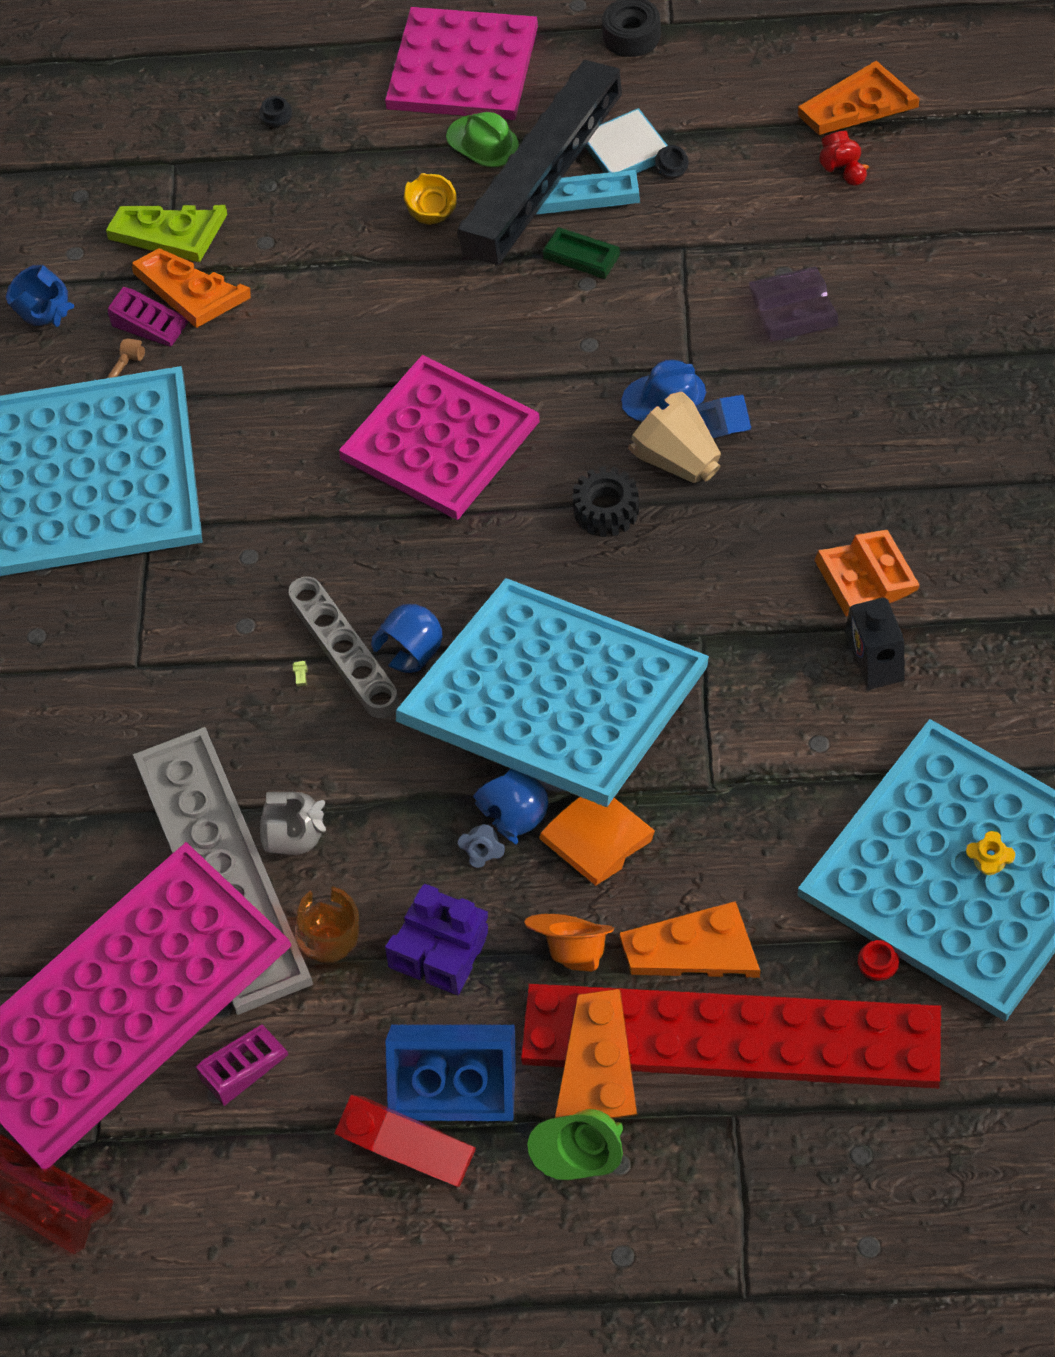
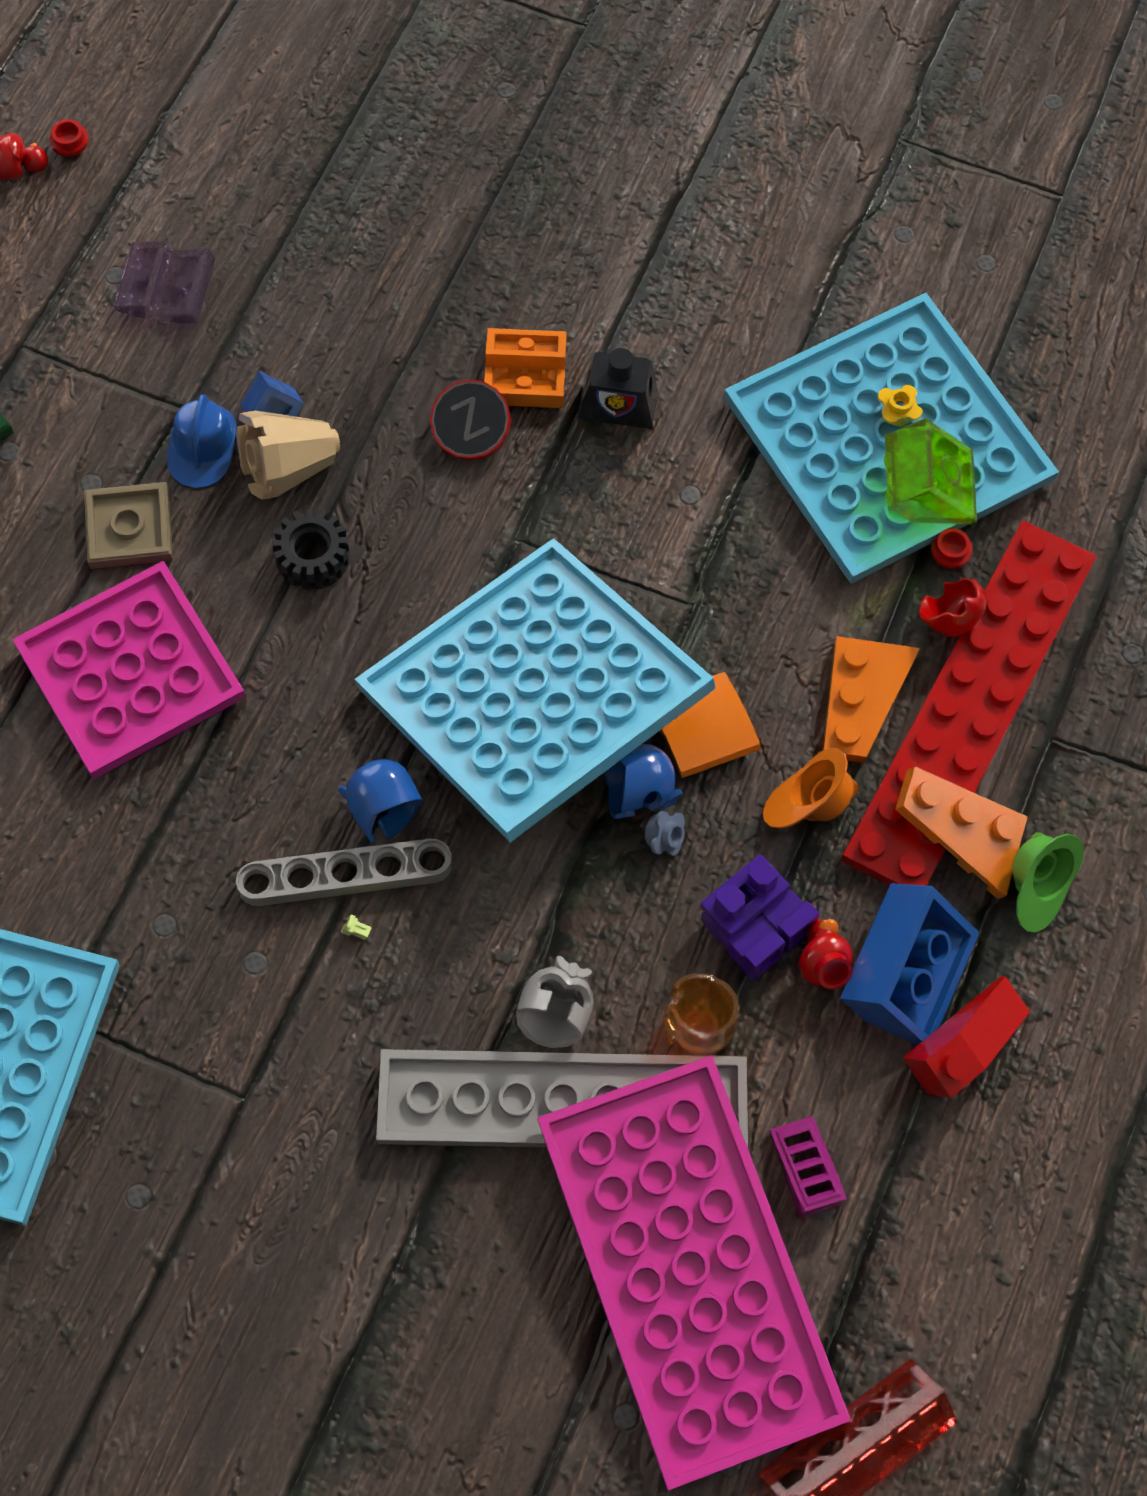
camera: 75 degrees left, 10 degrees up
(426, 1002) = (826, 957): none -> red animal
(563, 382) = (128, 525): none -> dark tan tile
(786, 553) = (470, 420): none -> black tile
(806, 979) = (955, 609): none -> red hair
(886, 183) = (68, 138): none -> red plate
(926, 903) = (929, 475): none -> clear neon green slope

